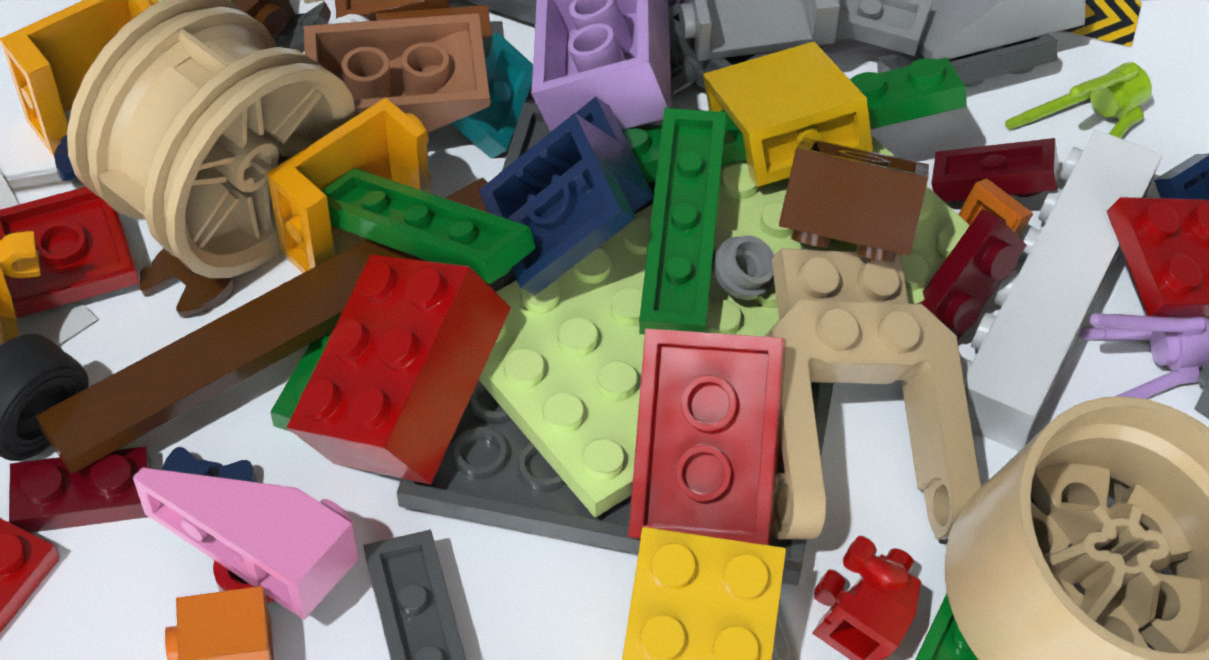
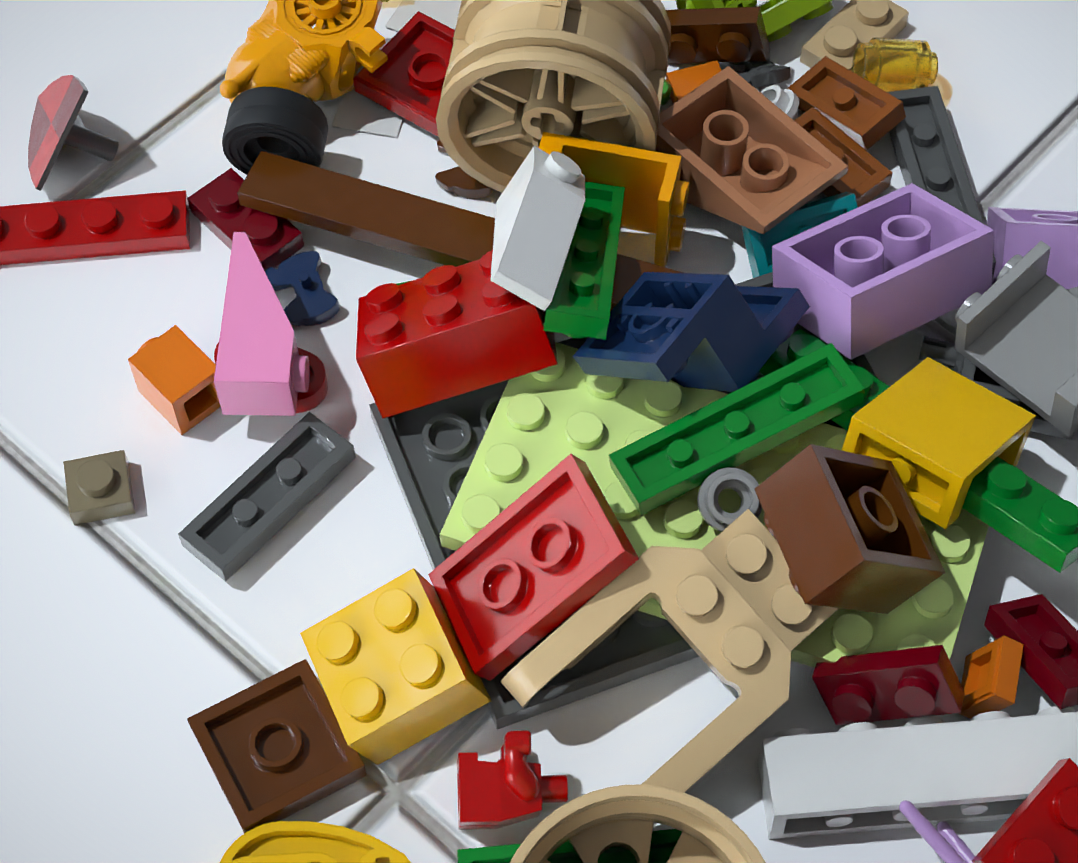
camera: 60 degrees right, 5 degrees up
(375, 222) = (537, 225): none -> white slope

